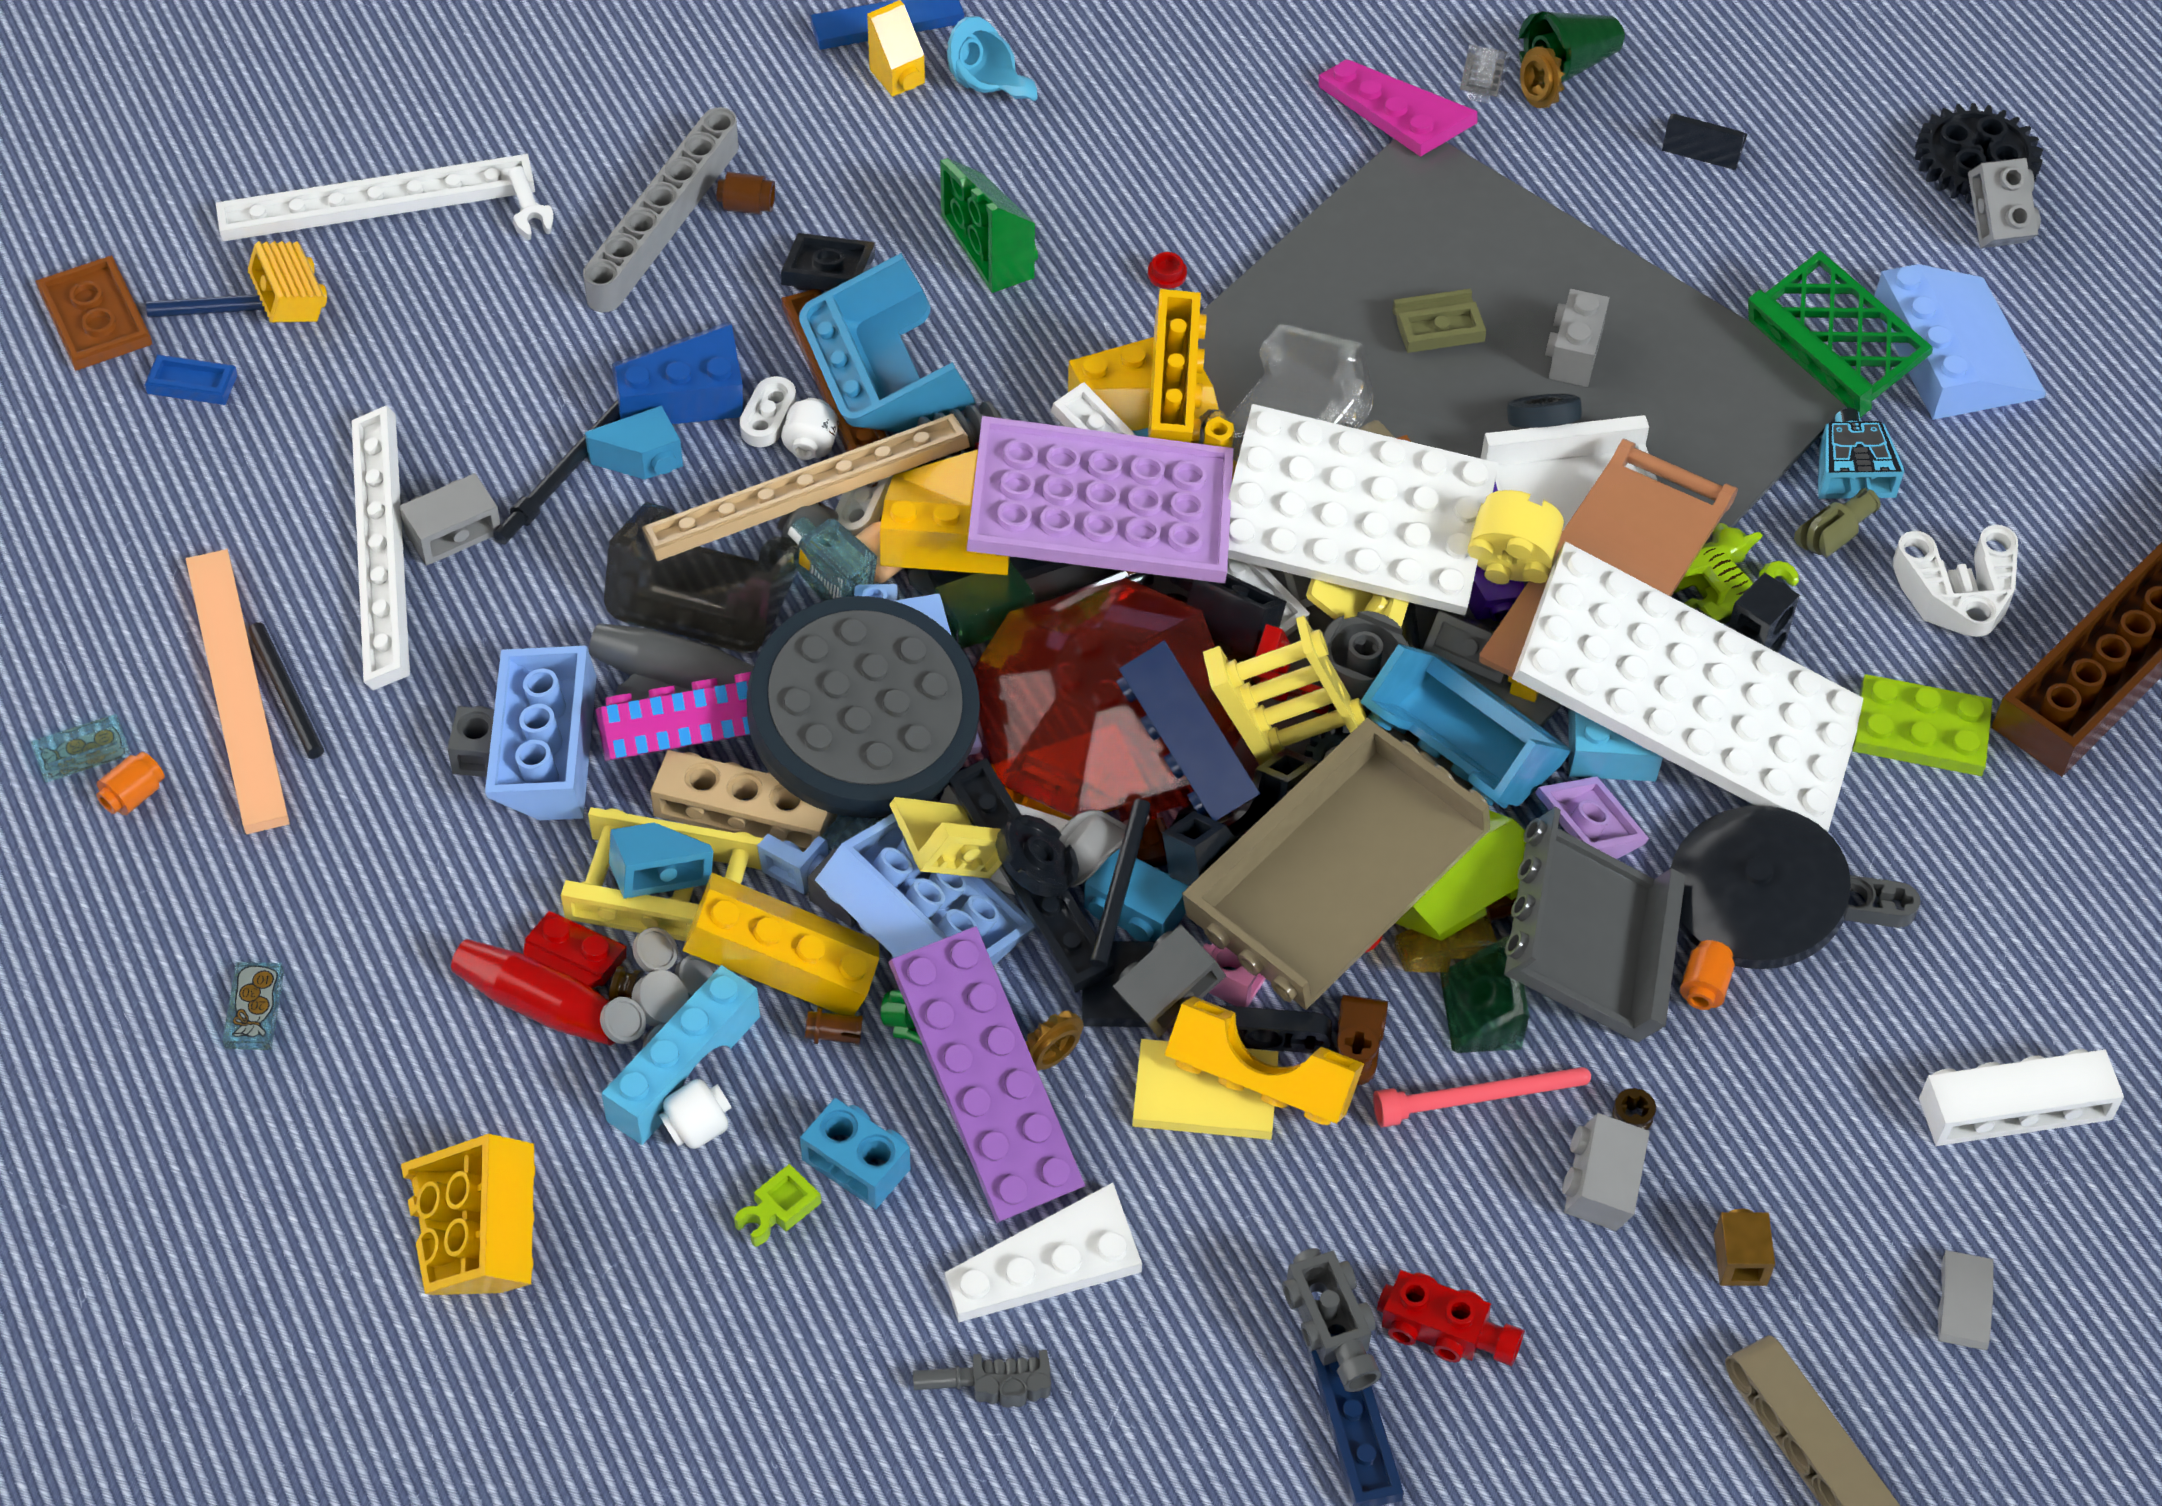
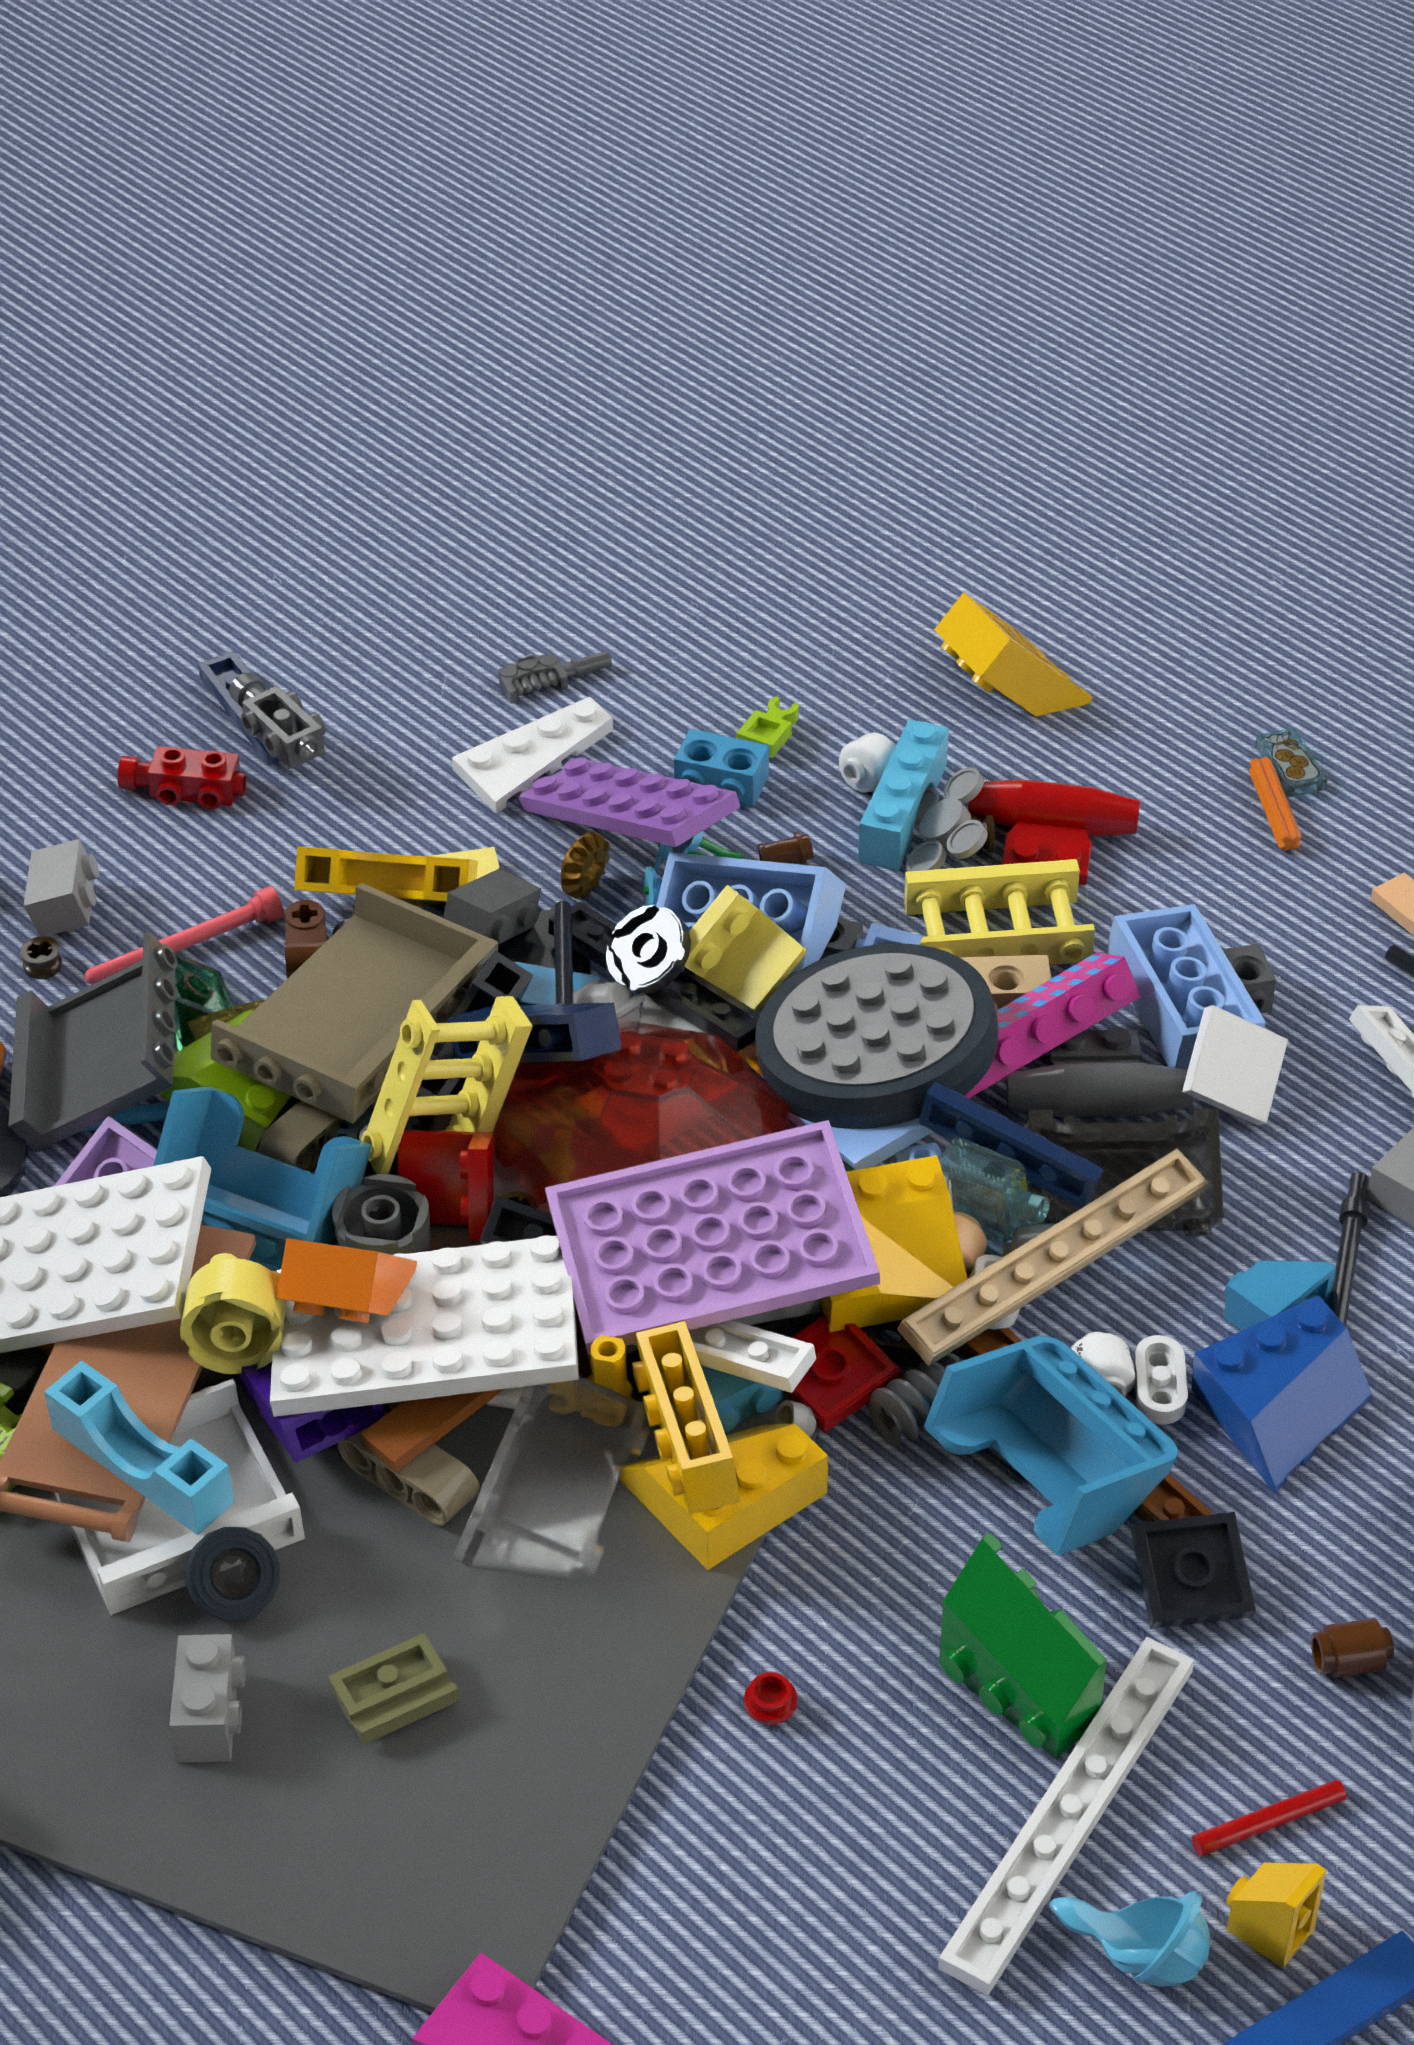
camera: 165 degrees right, 10 degrees down
(306, 954) = (1275, 804): none -> orange axle
(551, 627) = (1235, 1065): none -> white tile
(657, 860) = (1004, 887): dark azure slope -> none
(783, 946) = (877, 852): yellow slope -> none
(802, 549) = (1045, 1162): none -> dark blue plate
(862, 125) = (1268, 1817): none -> red bar
(995, 150) = (1065, 1817): none -> white plate
(1416, 528) = (342, 1278): none -> orange slope
(1576, 431) = (178, 1479): none -> medium azure arch

